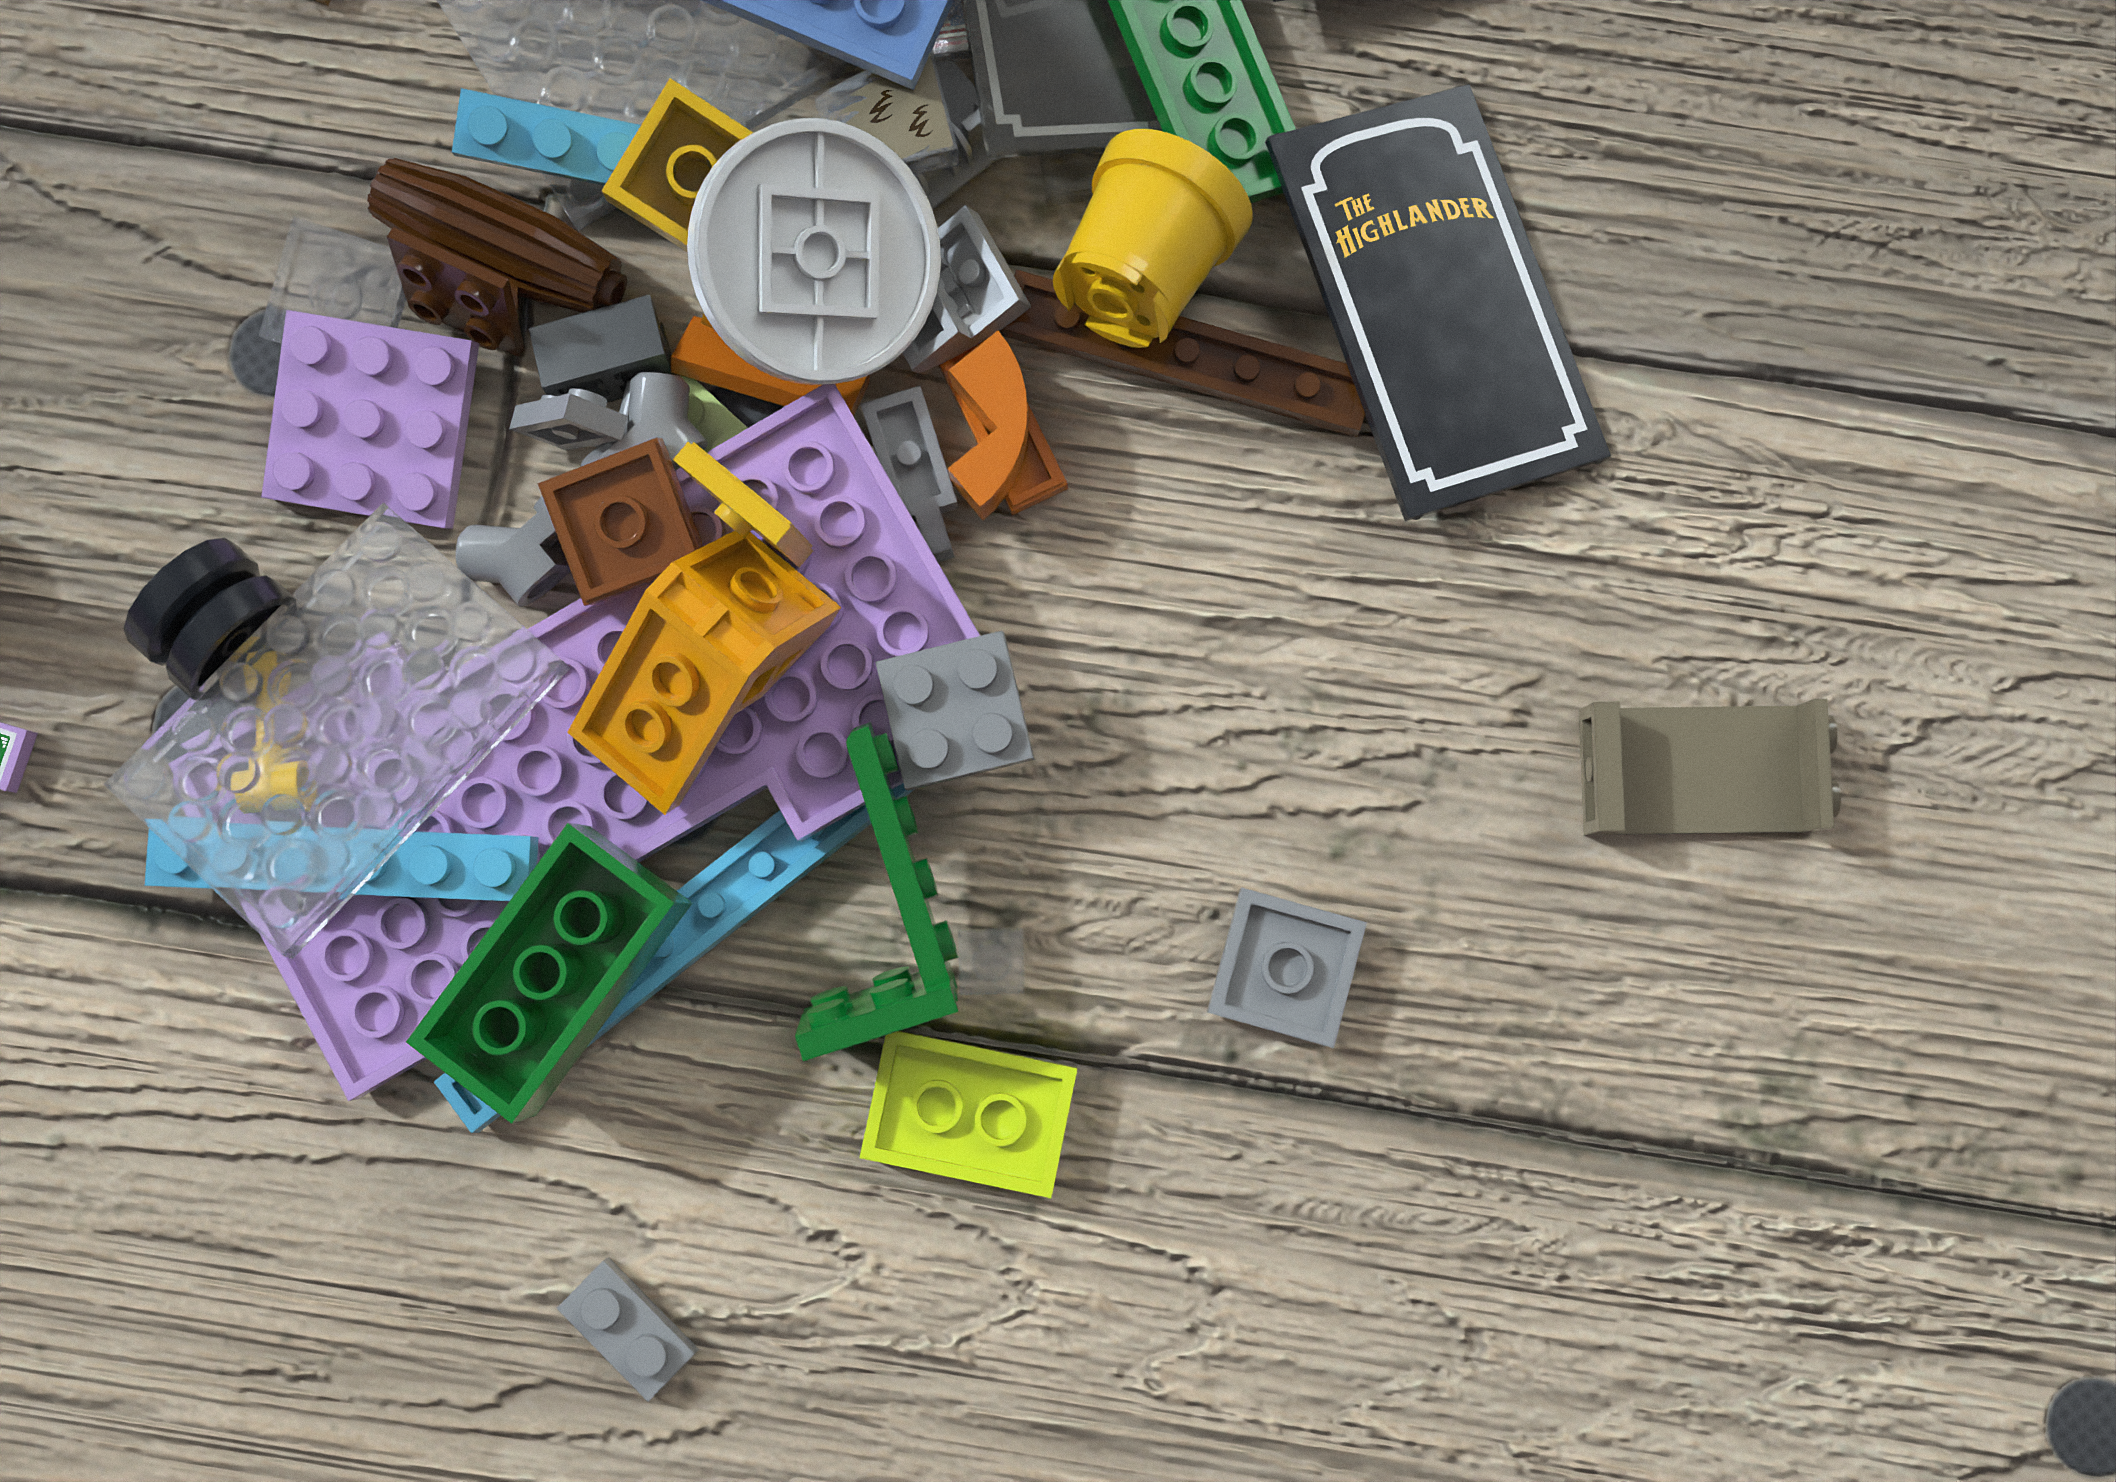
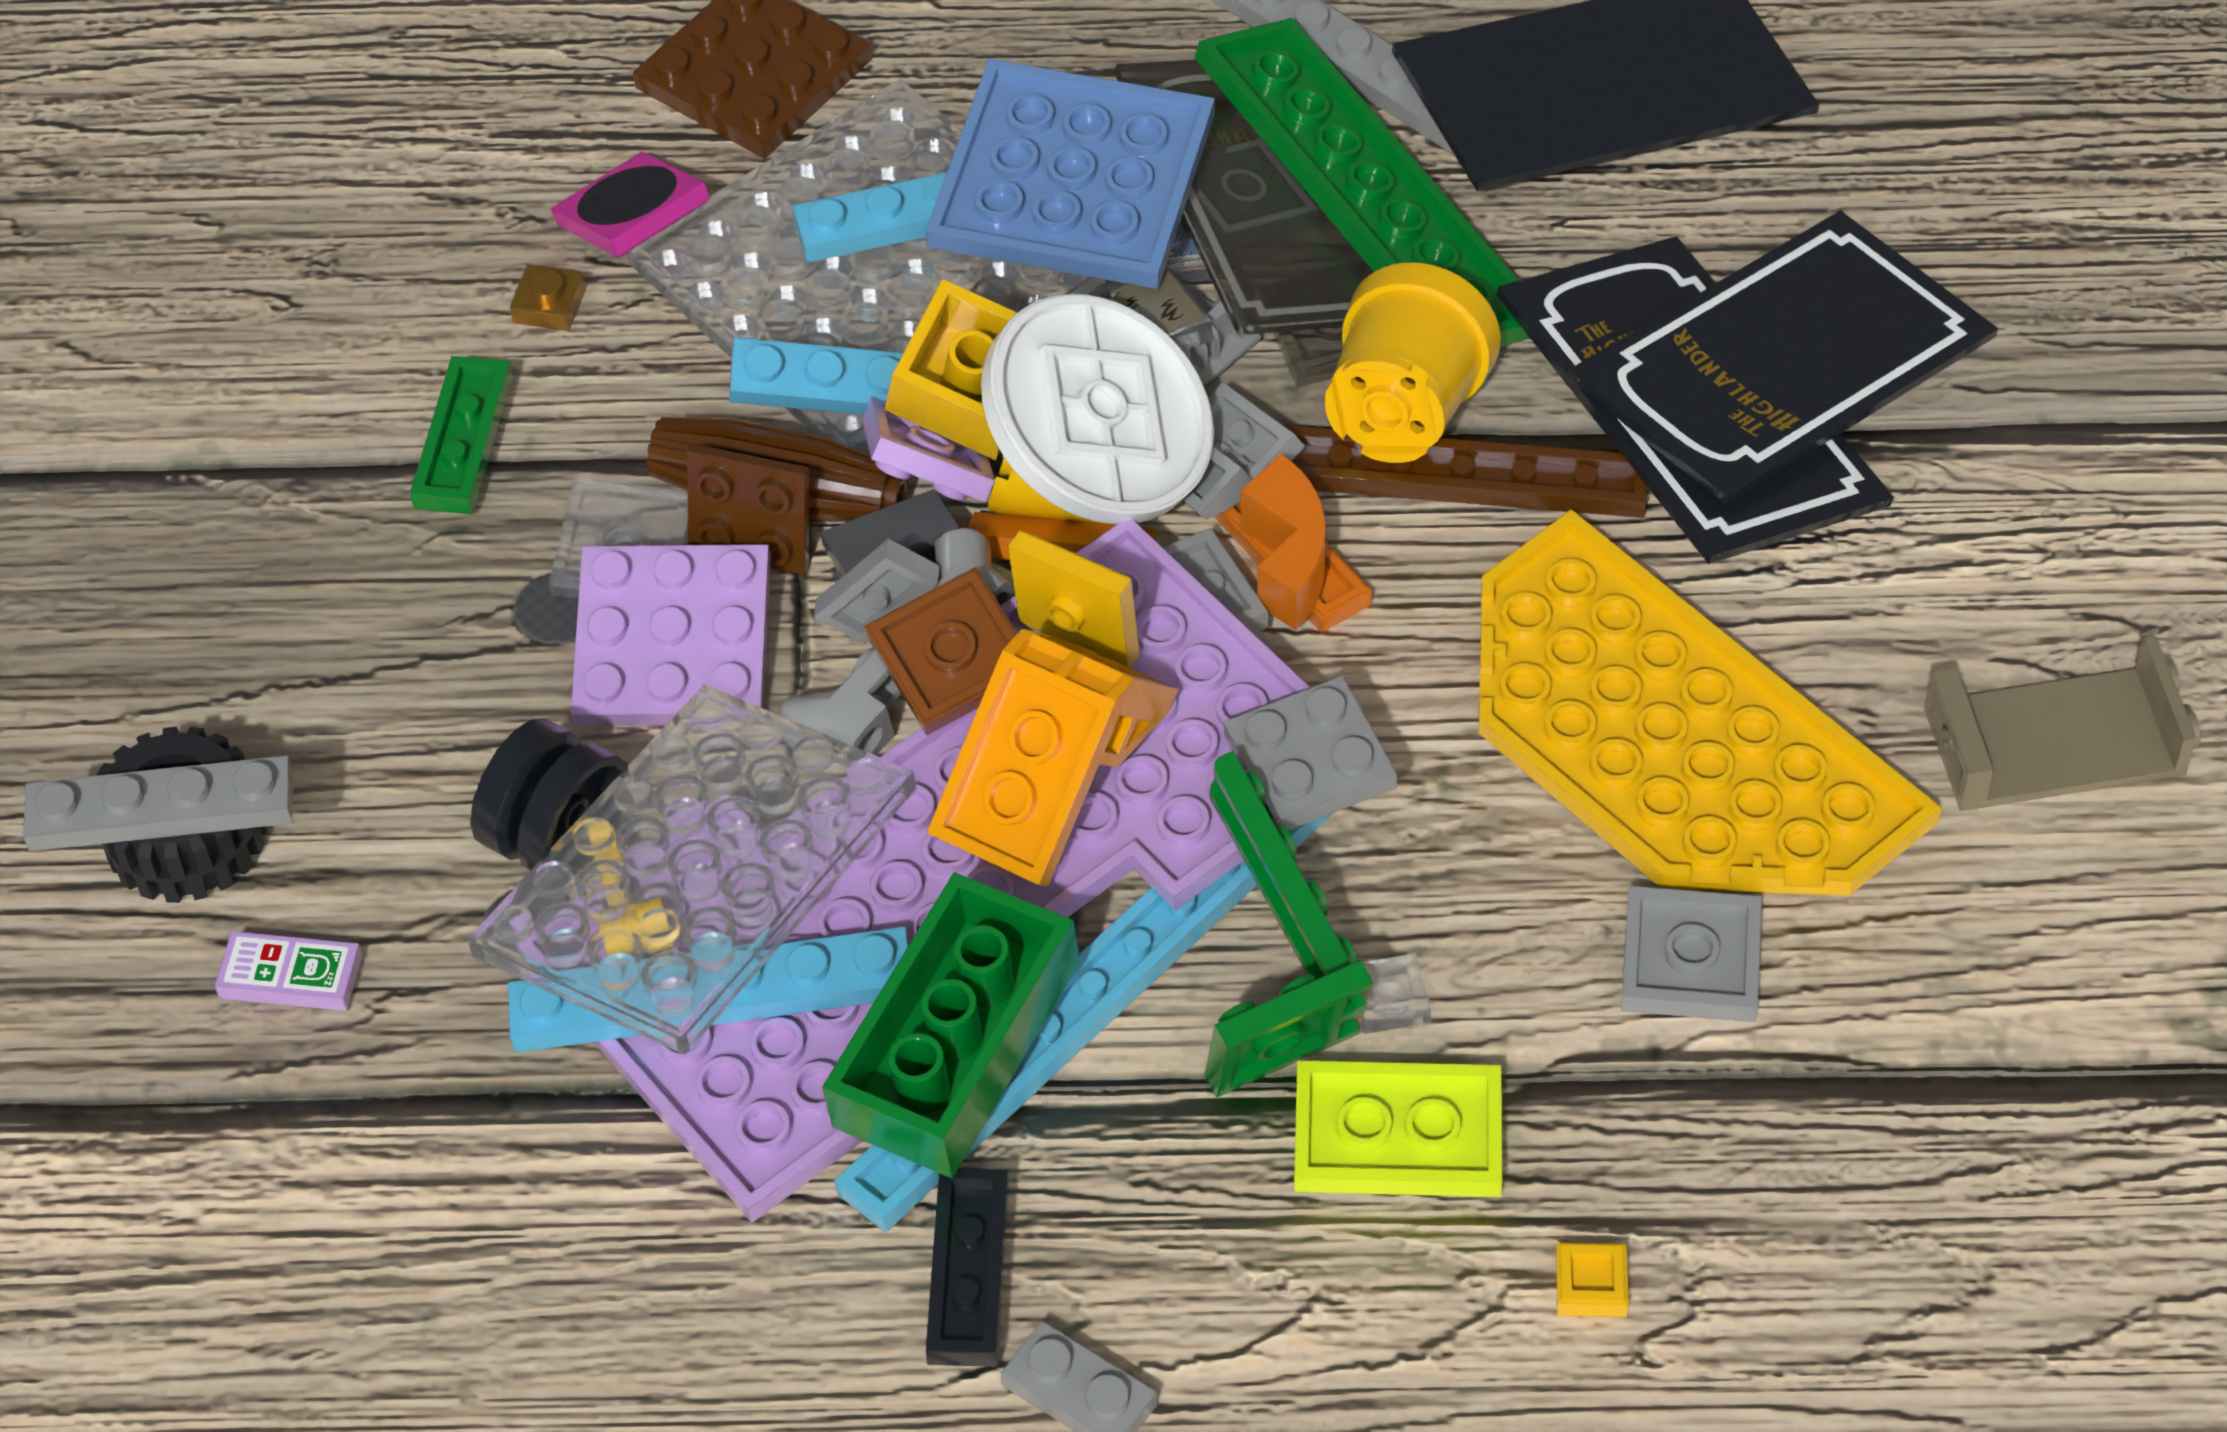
camera: 10 degrees left, 30 degrees down
(196, 130) = (461, 435): none -> green plate
(544, 1194) = (968, 1268): none -> black plate
(634, 261) = (910, 449): none -> lavender plate
(1116, 1297) = (1591, 1279): none -> yellow tile
(1327, 701) = (1676, 731): none -> yellow plate
(1540, 267) = (1782, 356): none -> black piece

